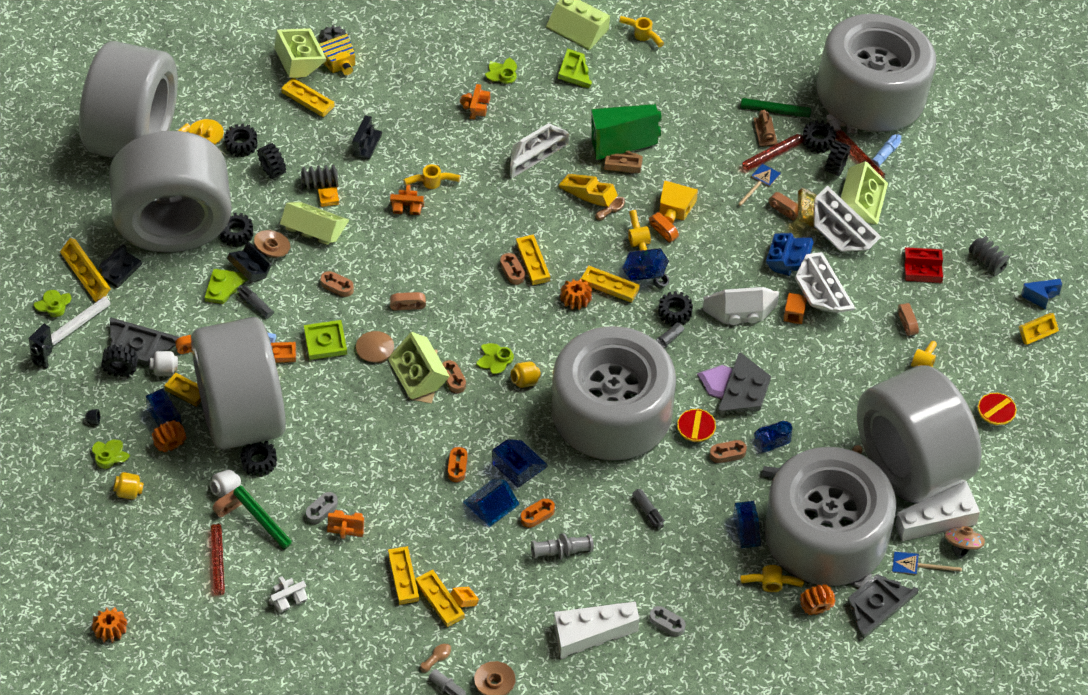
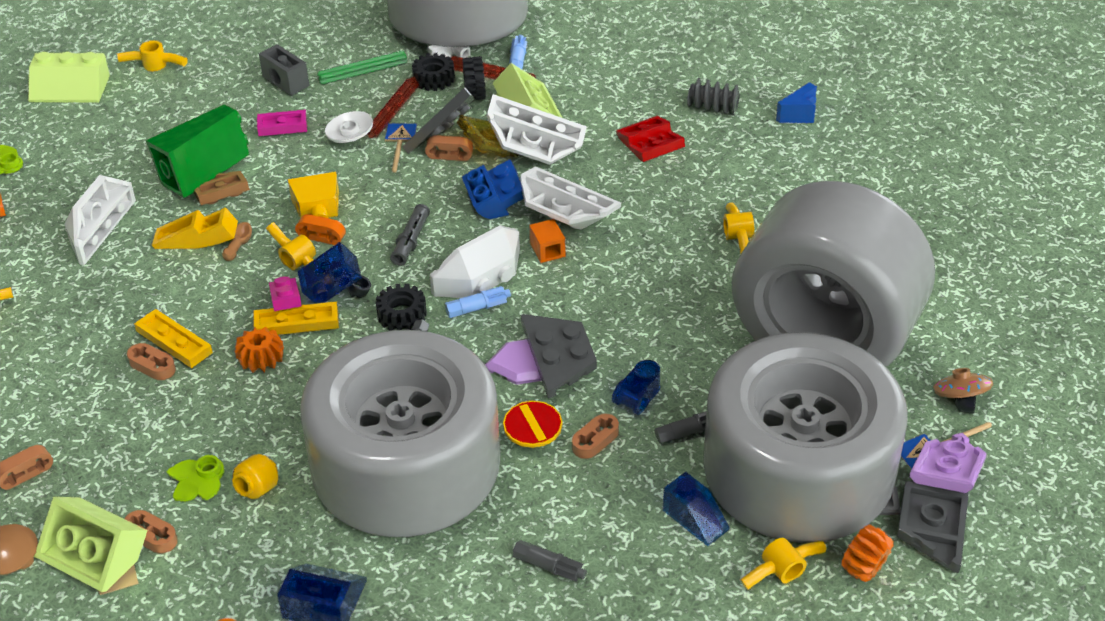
camera: 30 degrees left, 10 degrees down
(574, 69) = (93, 124): lime wing -> none
(613, 263) = (284, 293): none -> dark pink plate
(693, 129) = (281, 122): none -> dark pink plate
(701, 269) = (401, 251): none -> dark grey pin
(719, 86) = (284, 69): none -> dark grey brick
(723, 328) = (477, 301): none -> light blue piece
(732, 155) = (349, 127): none -> white dish
(765, 129) = (366, 89): medium nougat hinge -> none
(794, 183) = (442, 120): none -> dark grey wing
(908, 319) = (683, 193): nougat beam -> none
(909, 577) = (949, 464): none -> lavender tile
(939, 513) = (923, 362): white wedge -> none
(1038, 328) = (828, 139): yellow plate -> none

